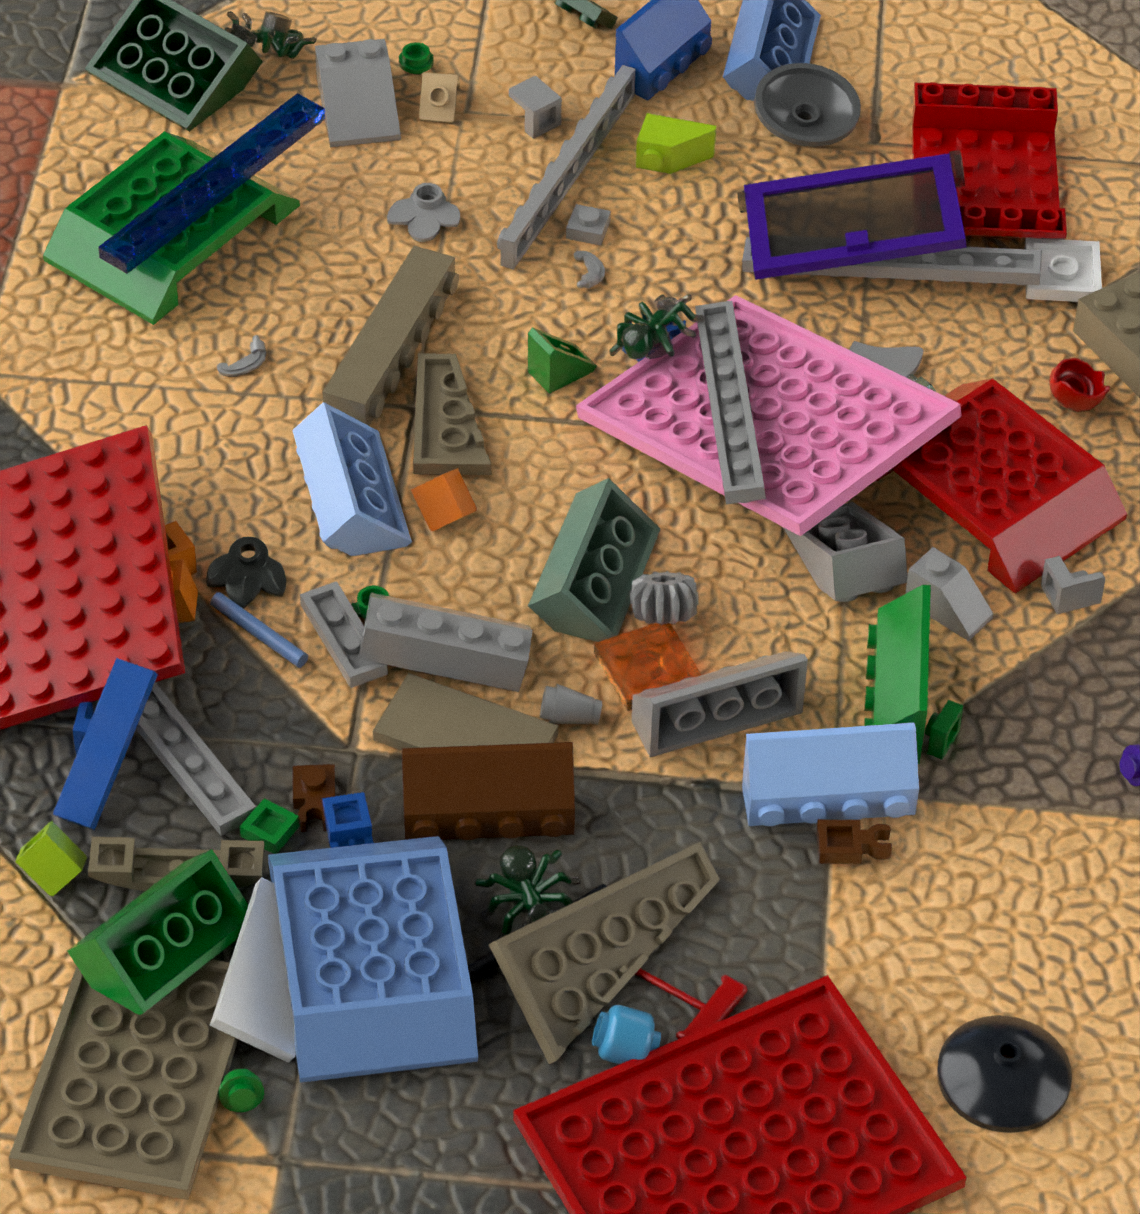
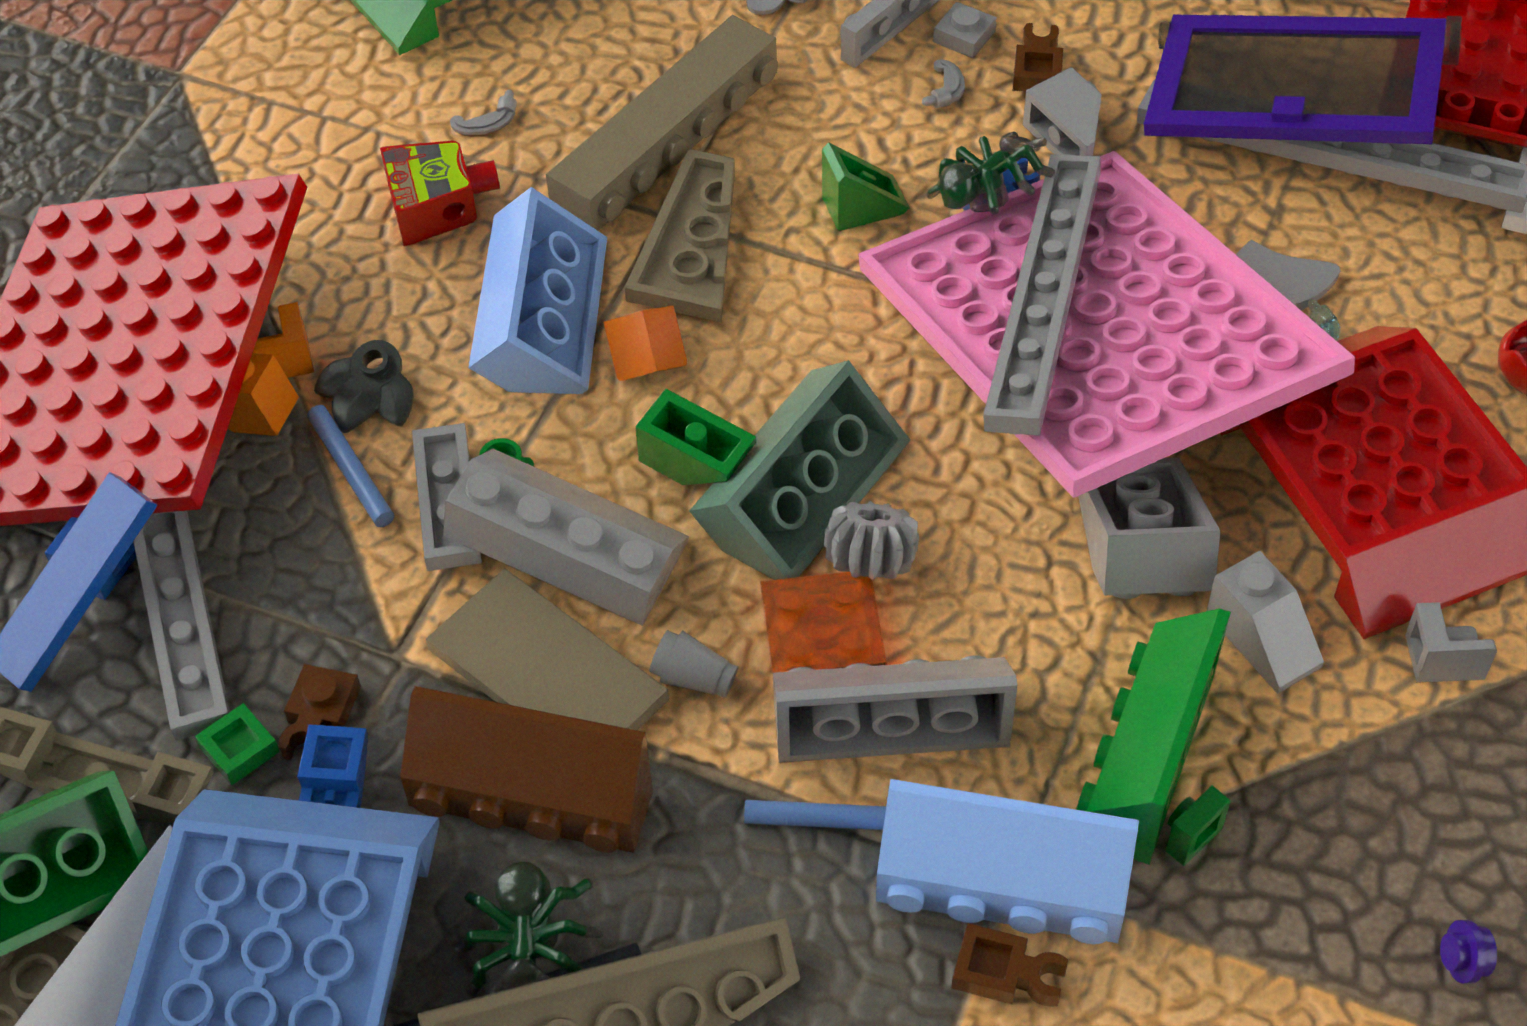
camera: 20 degrees right, 5 degrees up
(231, 419) = (434, 187): none -> torso
(512, 559) = (690, 441): none -> green slope
(655, 241) = (1036, 58): none -> reddish brown plate
(691, 781) = (814, 814): none -> medium blue bar
(692, 272) = (1064, 113): none -> light grey slope

